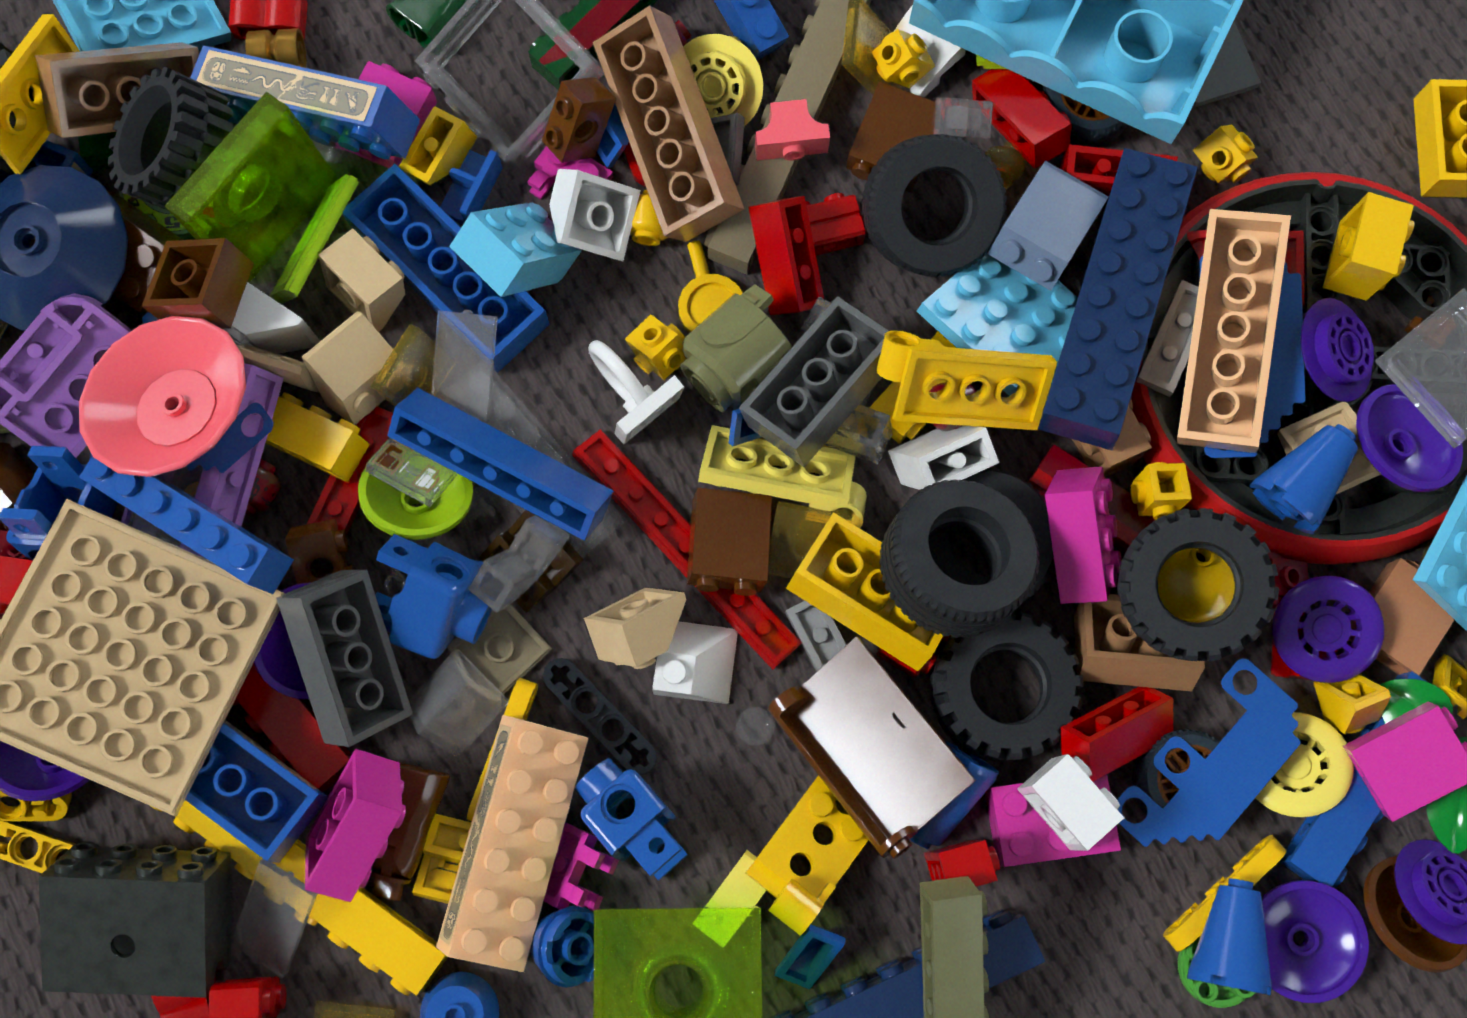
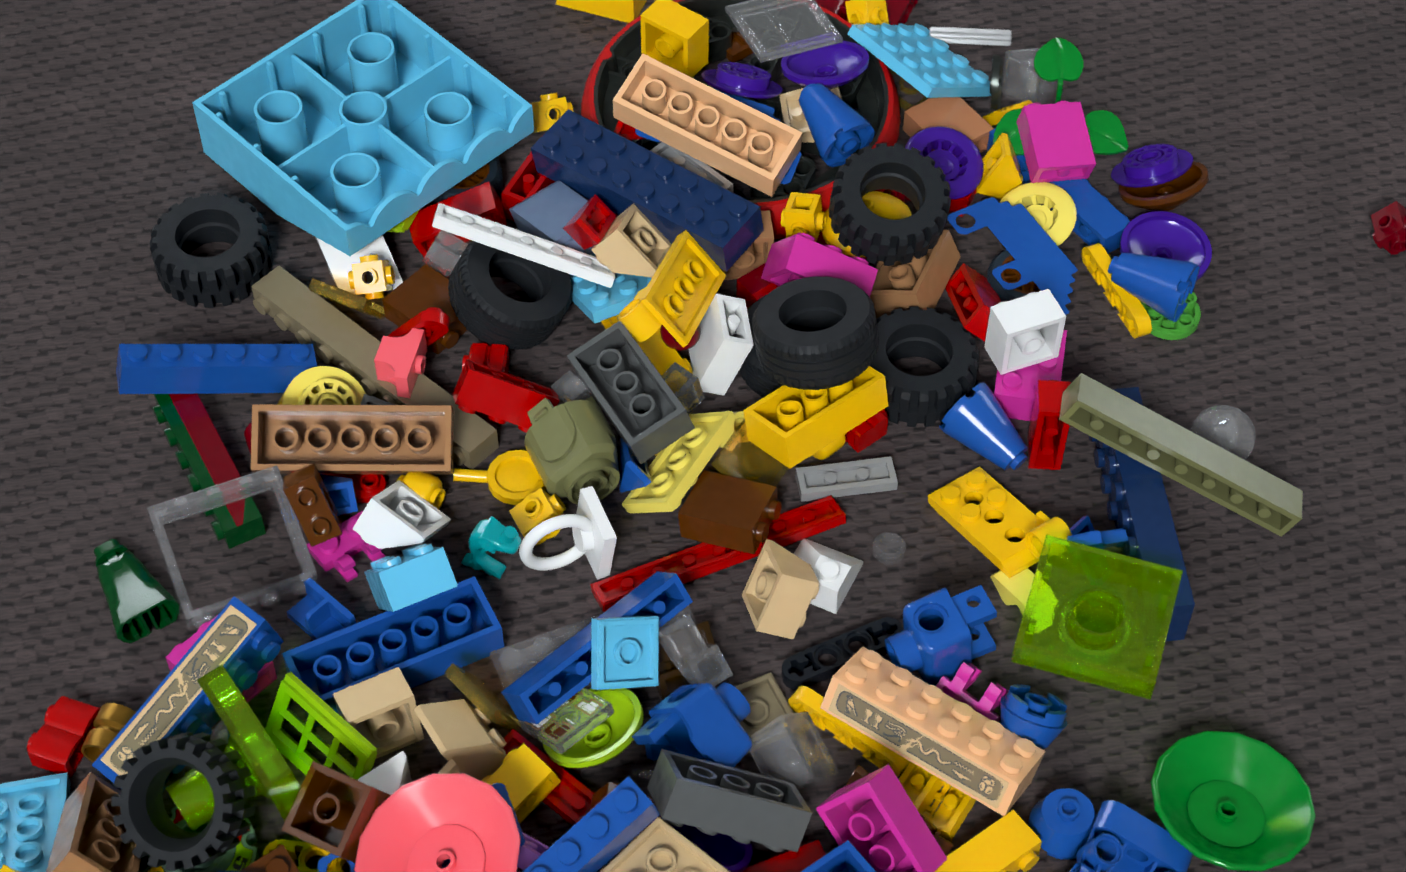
camera: 70 degrees left, 25 degrees down
(438, 147) = (281, 620): yellow slope -> none
(465, 361) = (490, 649): clear piece -> none
(493, 492) = (624, 652): none -> medium azure tile
(586, 312) = (491, 537): none -> teal animal
(802, 962) = (1101, 539): none -> blue tile
(842, 133) = (431, 320): none -> red plate
(878, 770) = (936, 457): door -> none
(970, 193) = (522, 244): none -> white tile
(1028, 311) = (632, 245): none -> tan slope
(1037, 254) = (590, 223): none -> red slope

